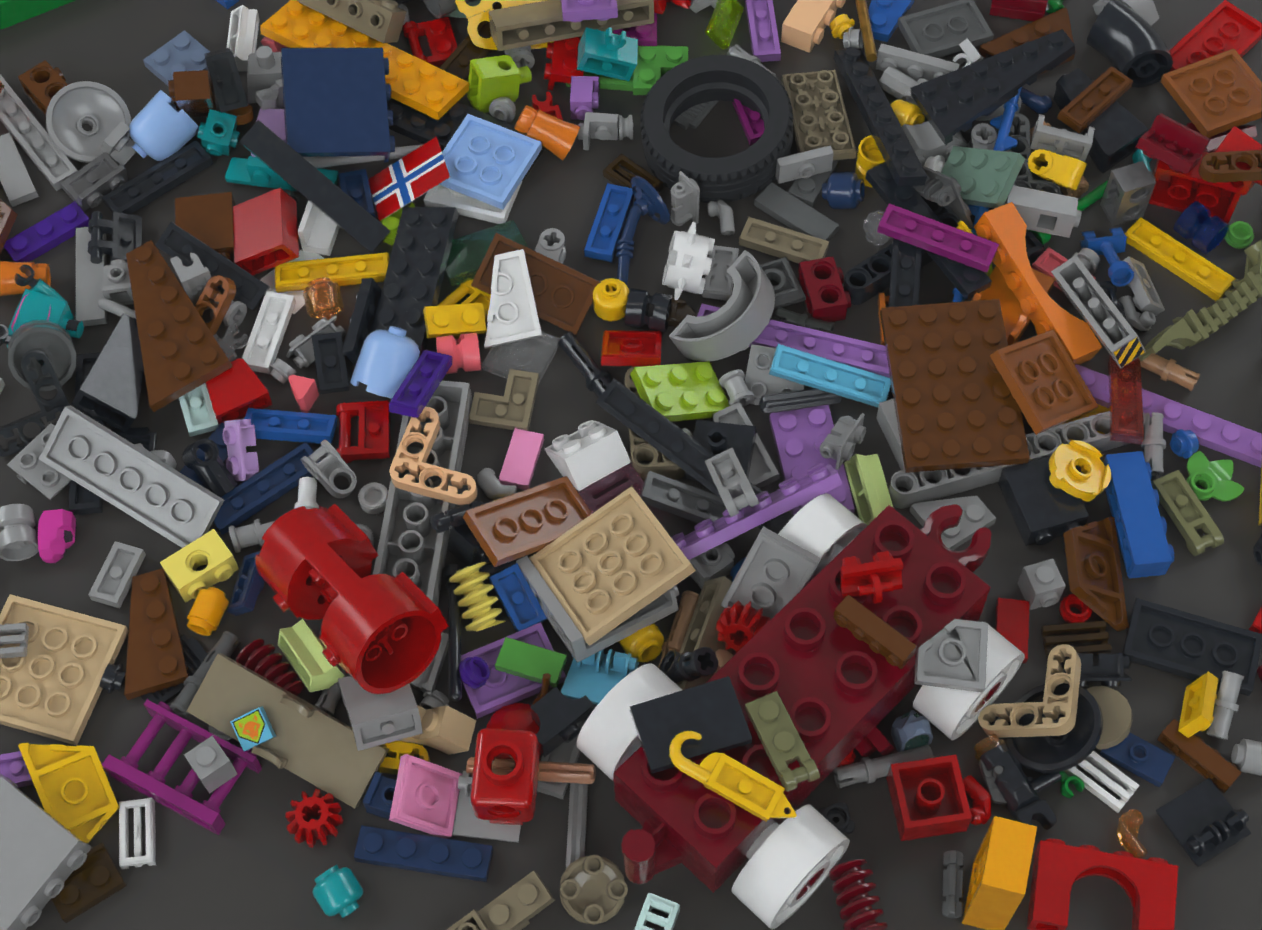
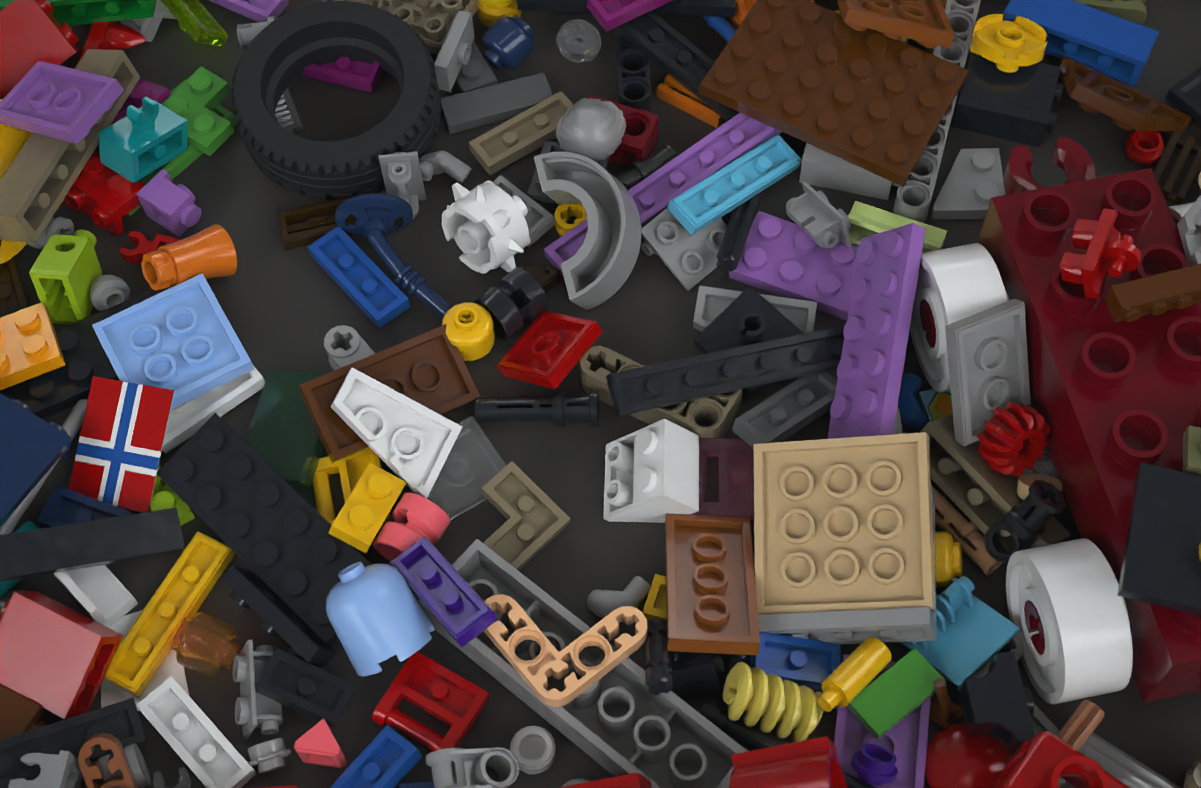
camera: 55 degrees left, 0 degrees up
(521, 458) = (601, 551): bright pink tile -> none
(523, 629) = (854, 674): none -> yellow cylinder
(598, 126) = (225, 208): light grey bracket -> none
(625, 127) = (246, 187): light grey bush -> none
(680, 390) = (645, 330): lime plate -> none
(731, 482) = (830, 337): light grey plate -> none
(736, 388) = (679, 280): light grey bush -> none
(801, 271) = (591, 128): none -> light grey hair
(1041, 584) = (1110, 149): light grey brick -> none

